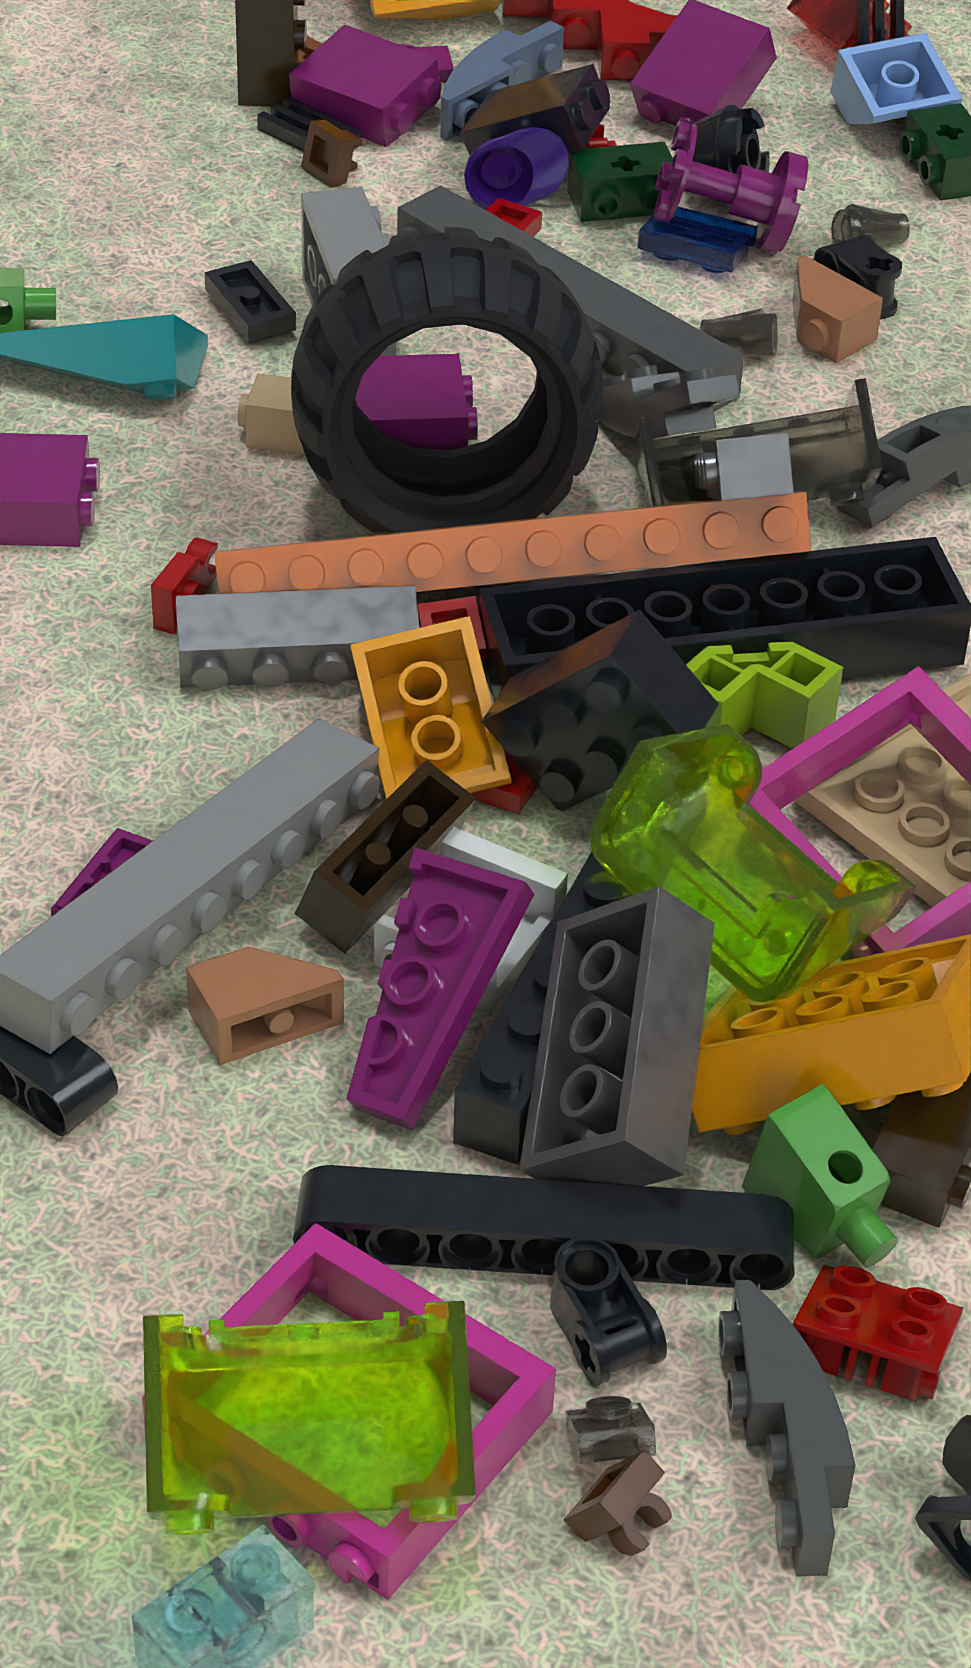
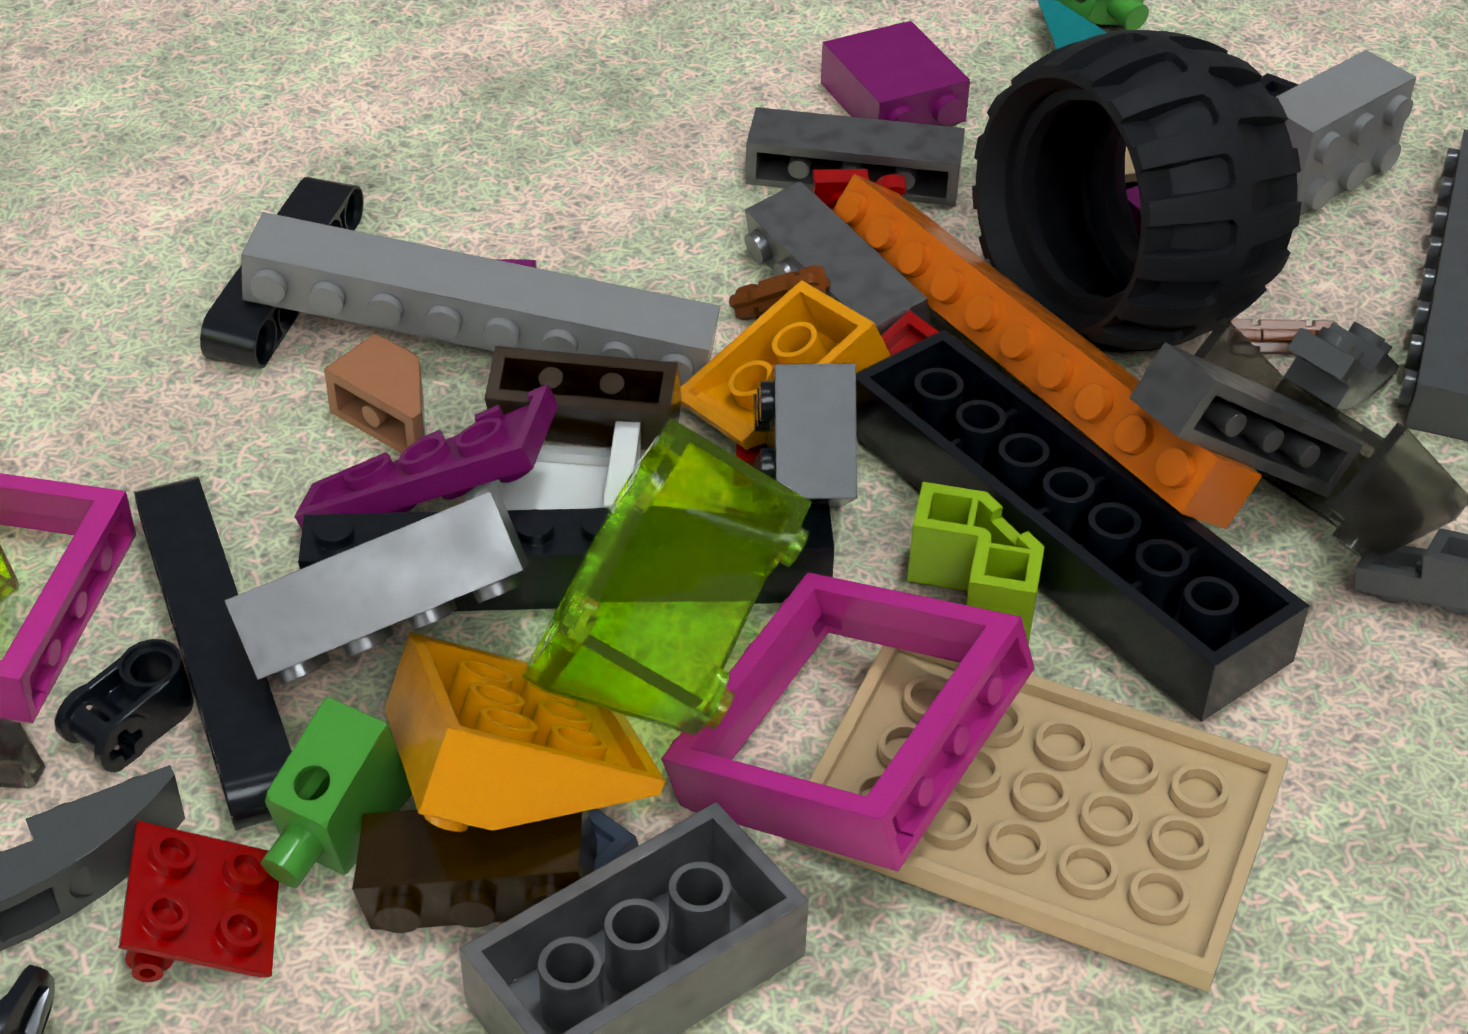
camera: 65 degrees right, 0 degrees up
(113, 561) = (791, 144): none -> flat silver brick
(307, 680) = (757, 299): none -> dark orange axle

